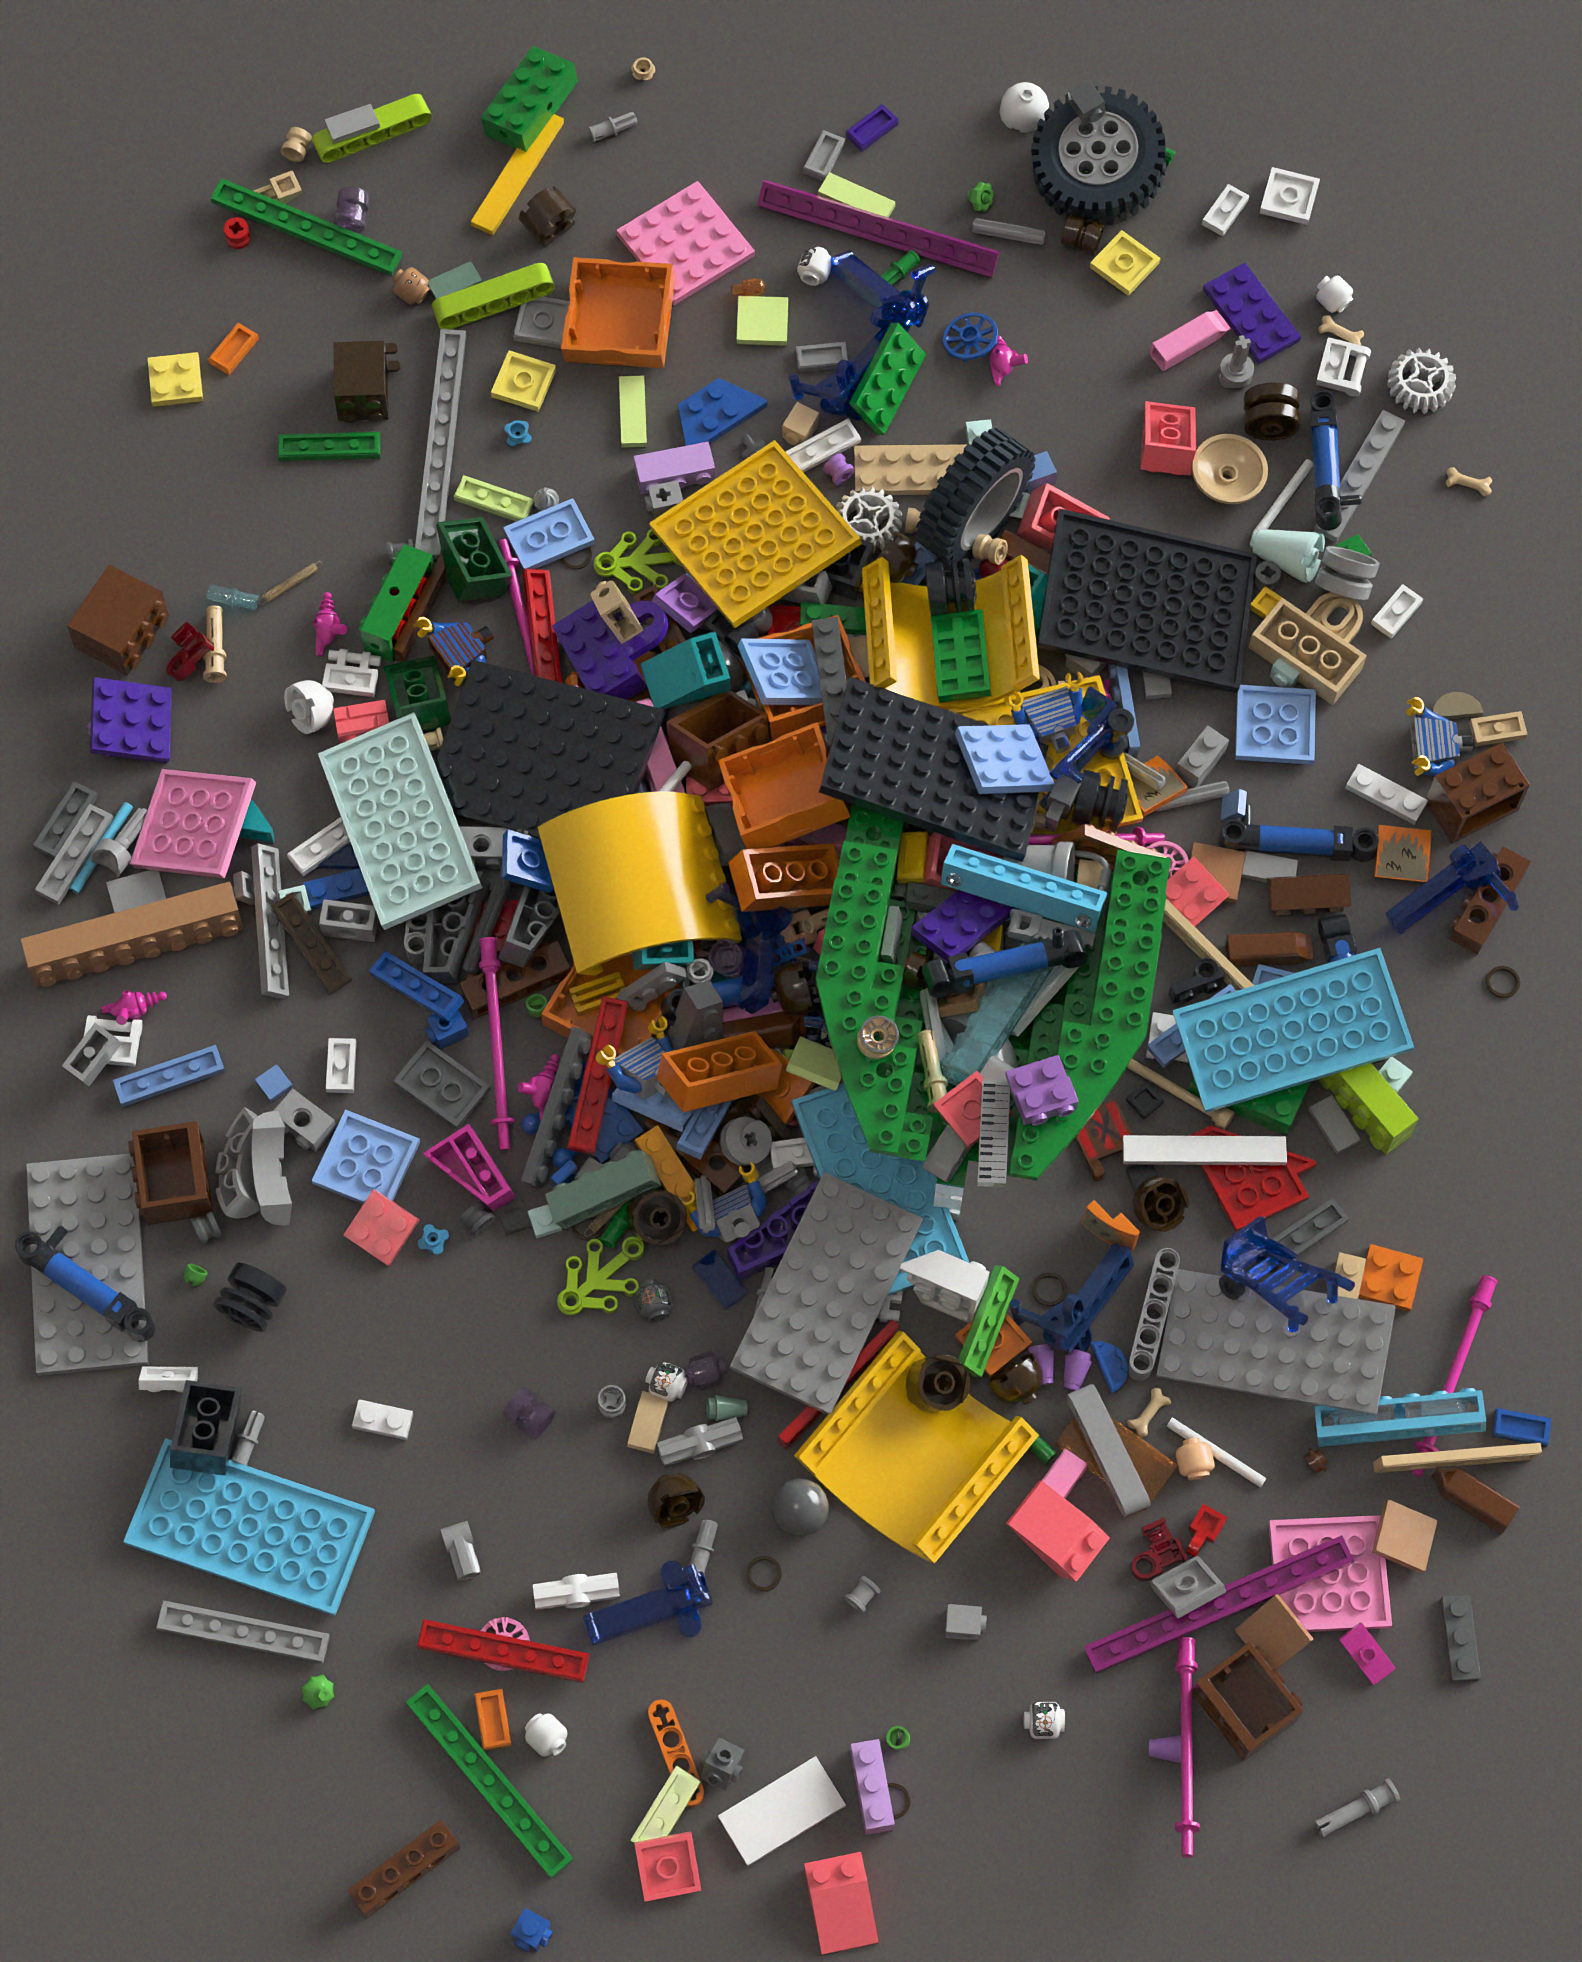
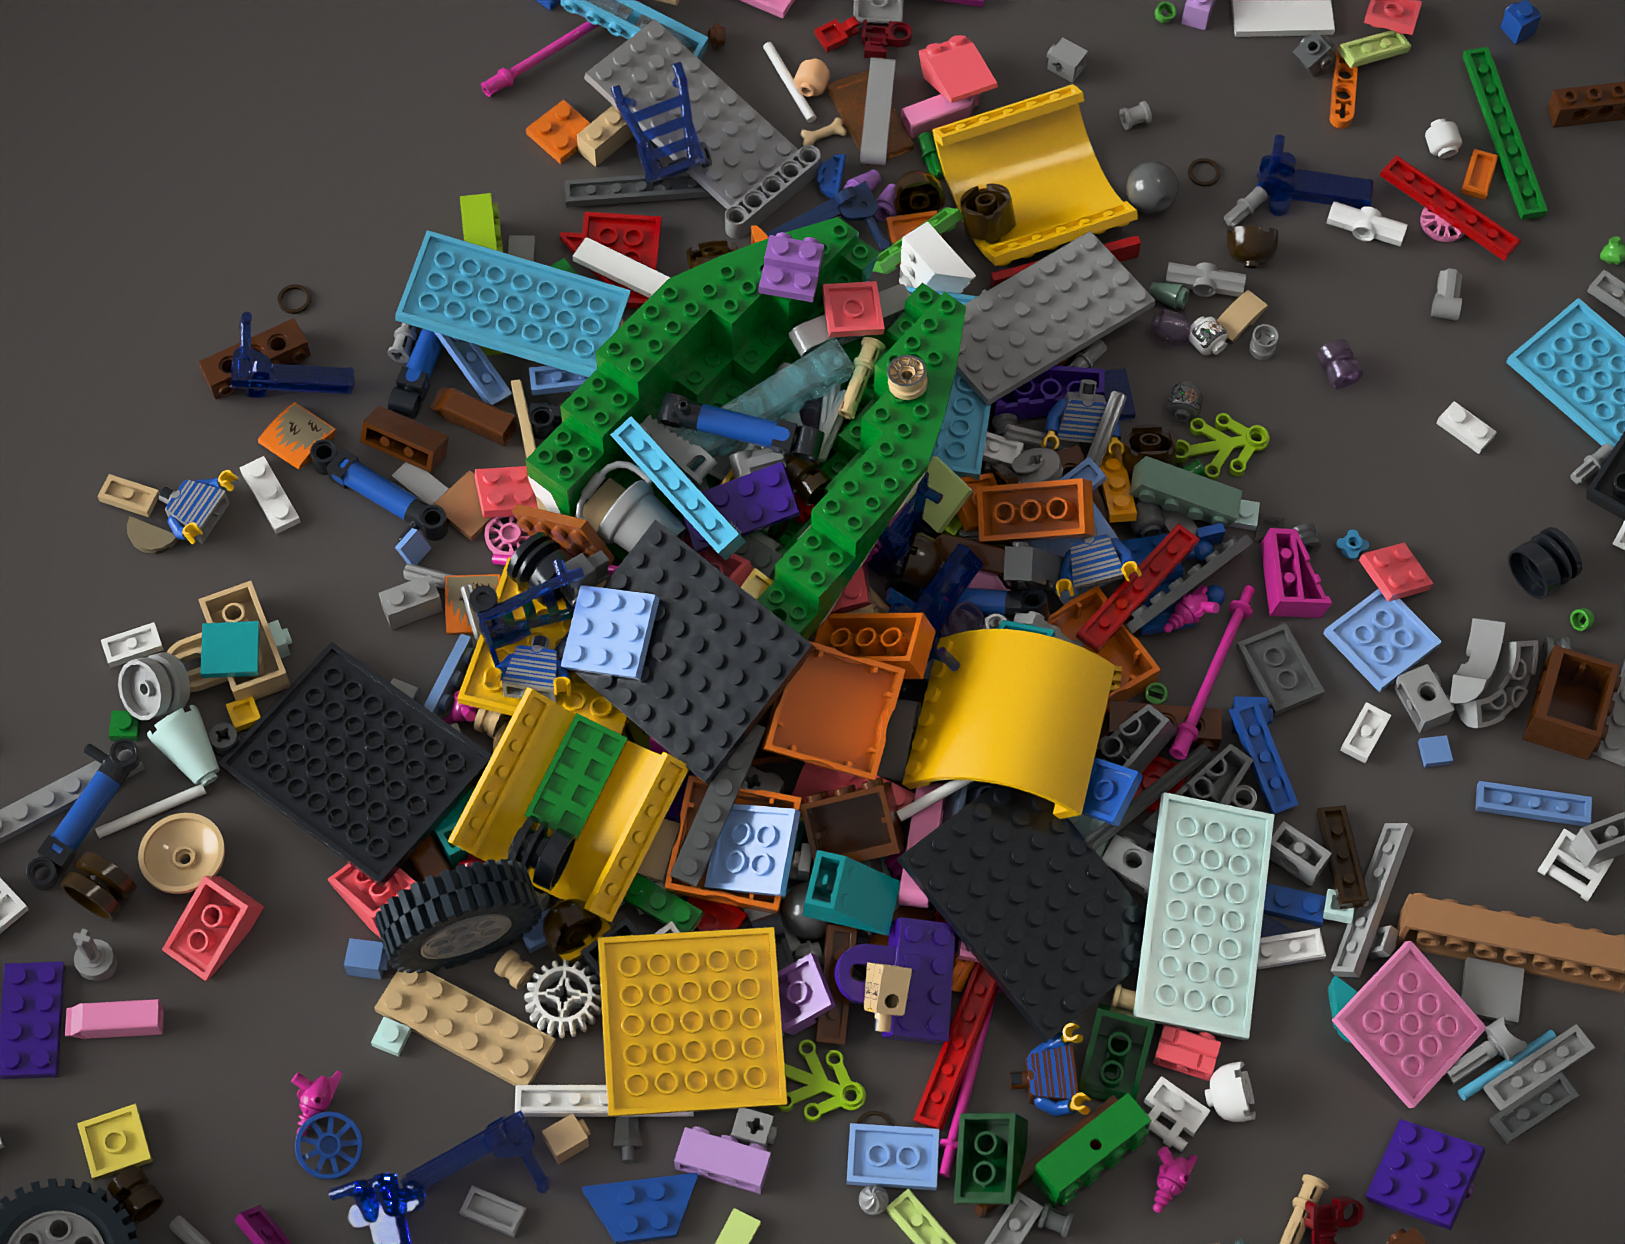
camera: 150 degrees left, 5 degrees down
(132, 1005) = (1544, 884): dark pink piece -> none
(838, 469) = (558, 1068): medium lavender wheel -> none
(887, 378) = (446, 1133): green plate -> none
(994, 1133) = (851, 267): light grey tile -> none
(1275, 724) = (321, 600): light blue plate -> none
(1308, 625) = (230, 649): none -> teal tile
(1477, 792) = (197, 435): reddish brown container -> none

